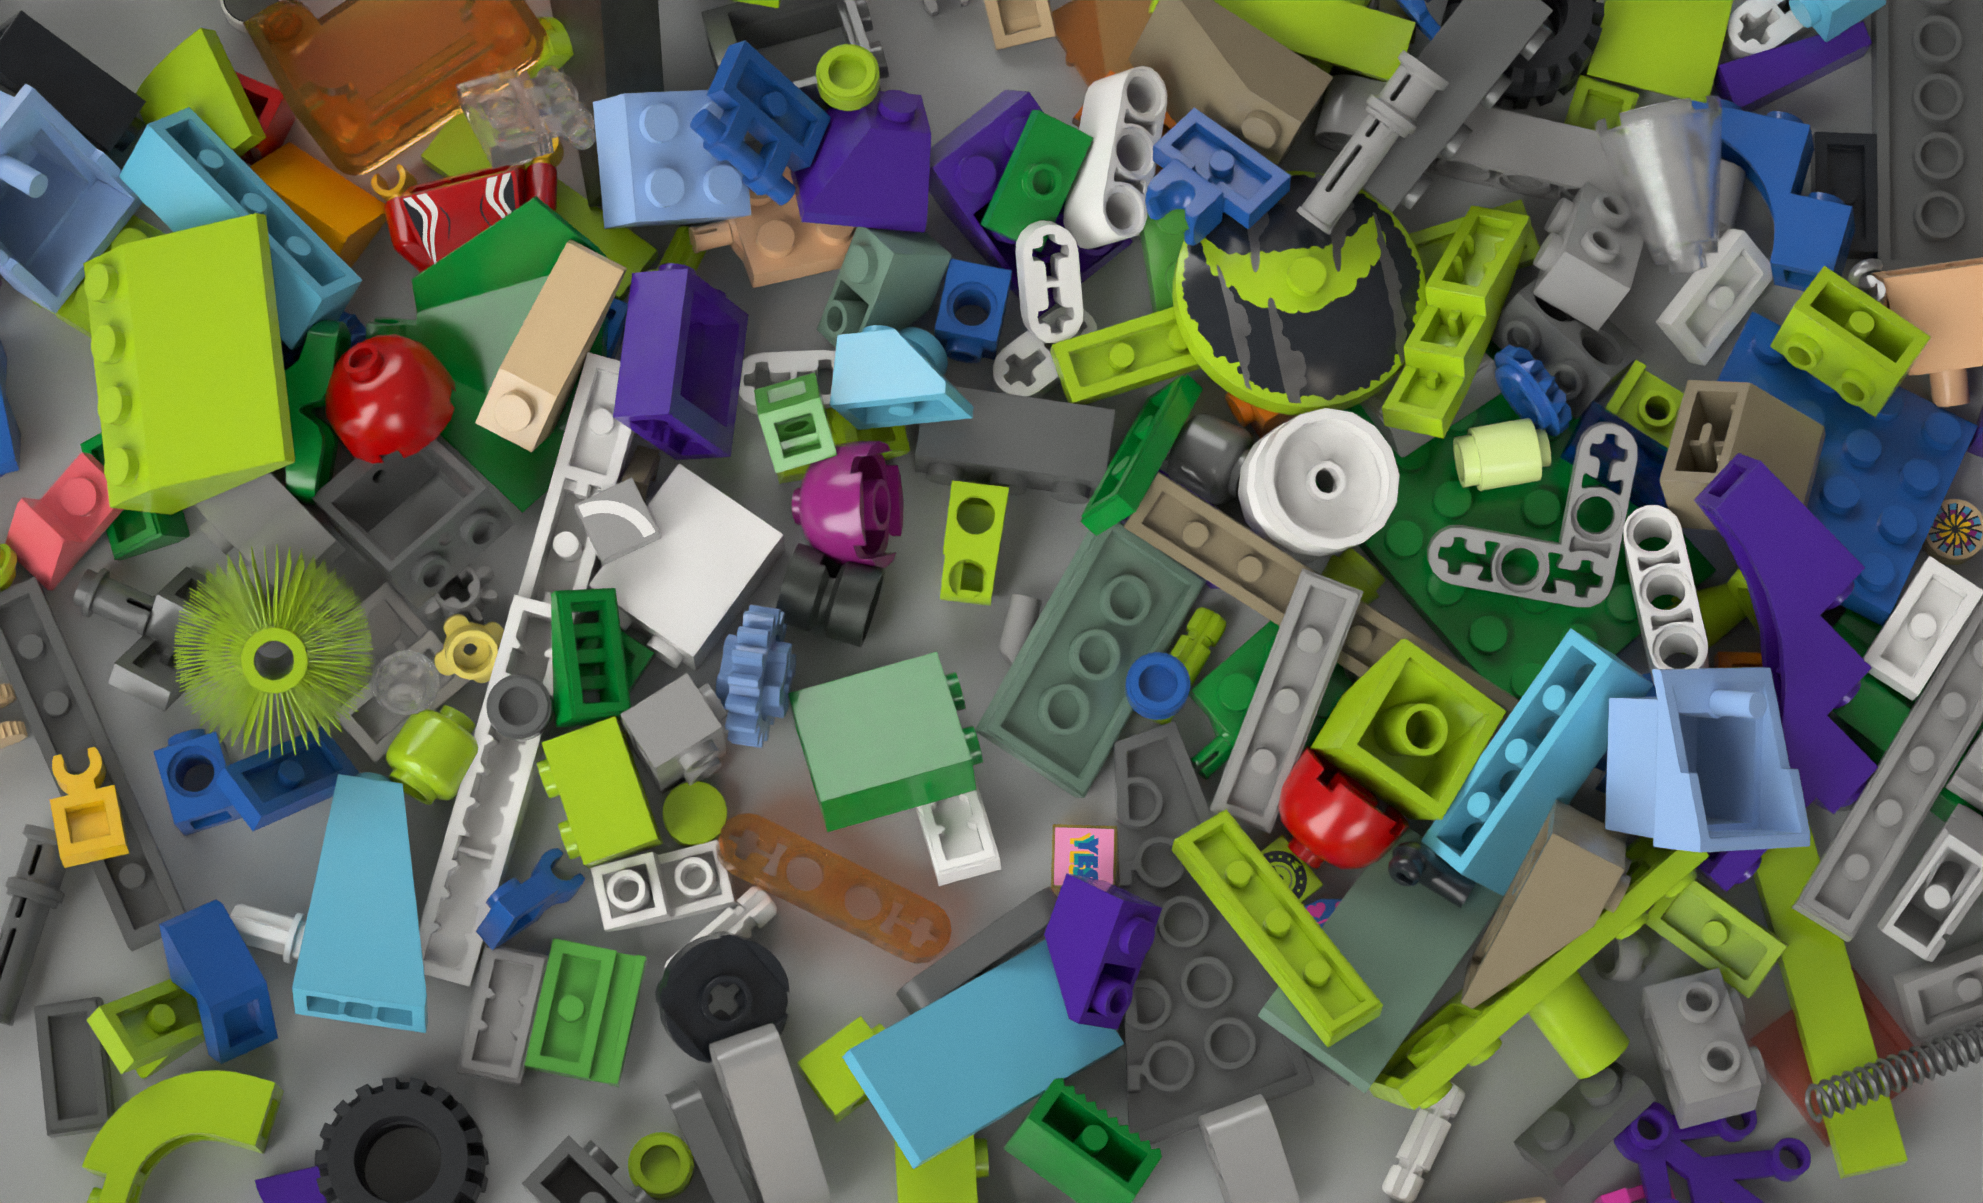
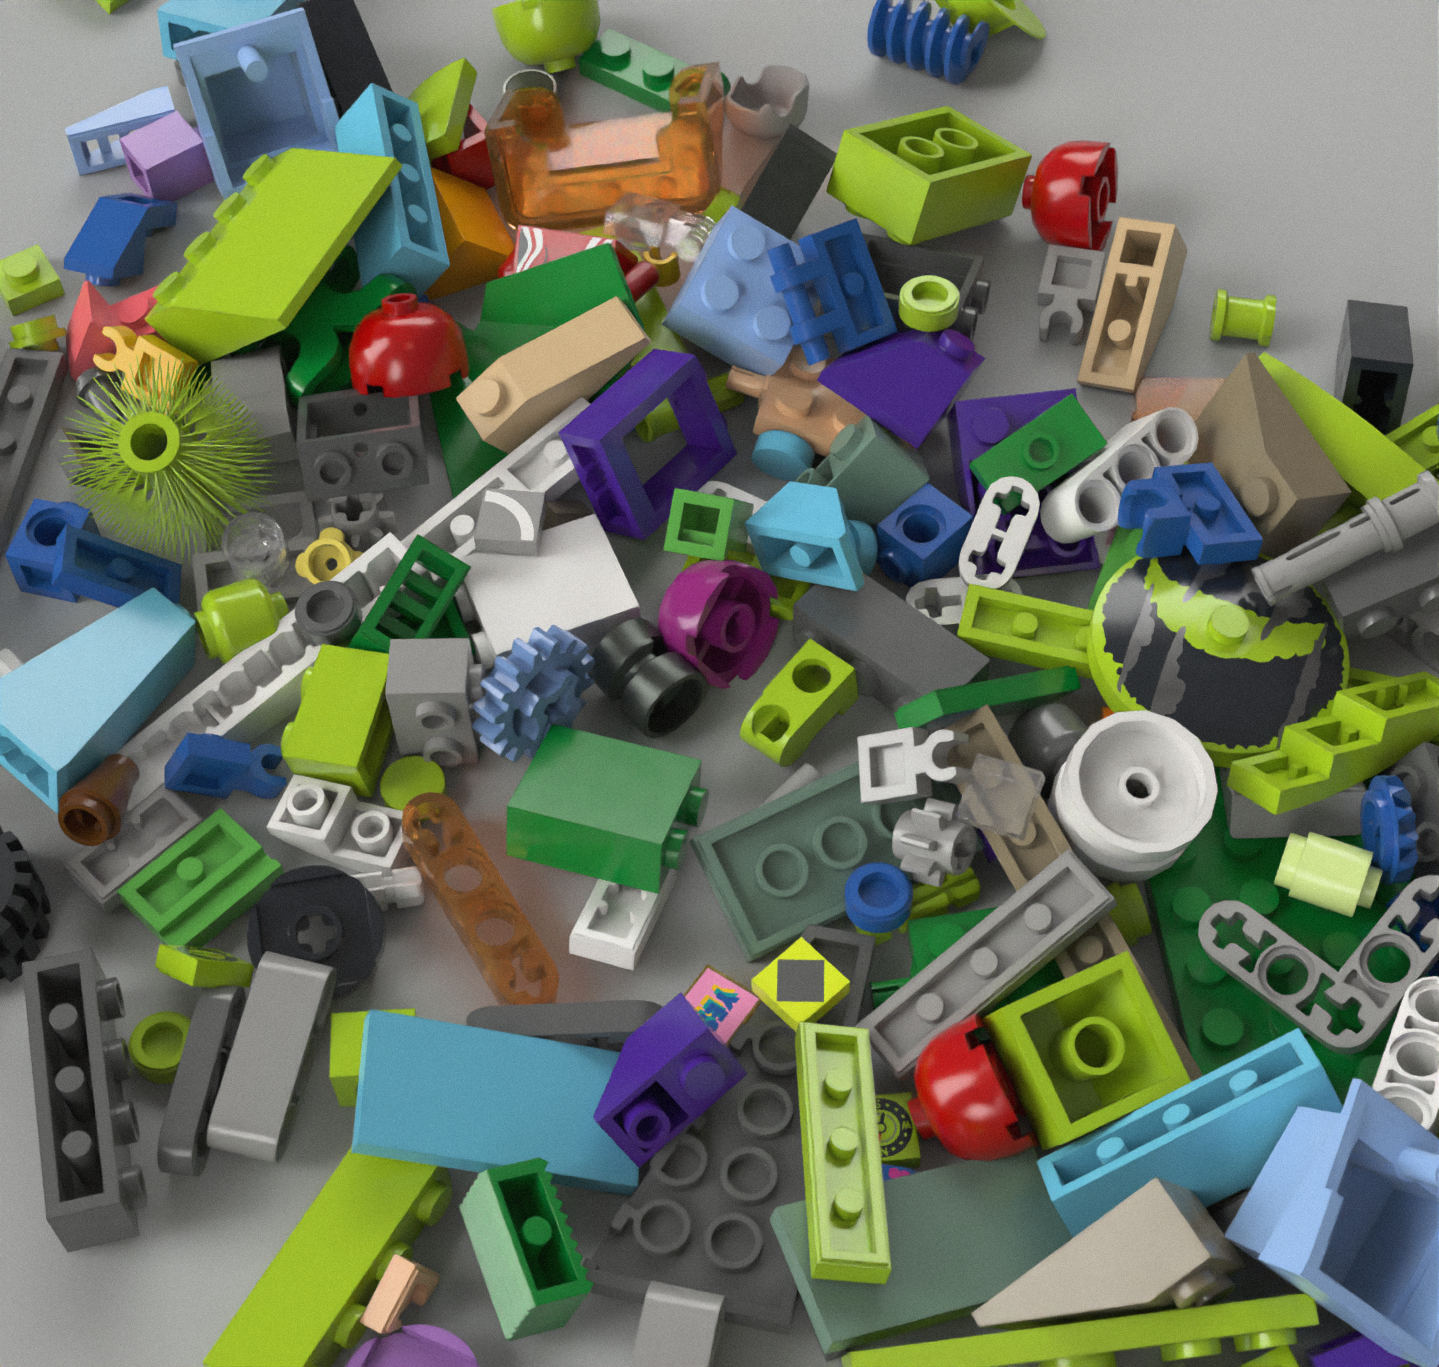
camera: 40 degrees right, 20 degrees down
(149, 549) = (145, 348): none -> yellow plate
(455, 1002) = (97, 803): none -> reddish brown cone
(652, 1084) = (203, 966): none -> lime tile
(792, 293) = (782, 454): none -> medium azure tile
(1121, 569) = (903, 761): none -> plate
(1148, 804) = (800, 985): none -> neon yellow tile
(1178, 614) = (933, 842): none -> light grey gear
(1218, 552) = (1000, 797): none -> clear tile
(1417, 863) = (1018, 1176): black arm -> none

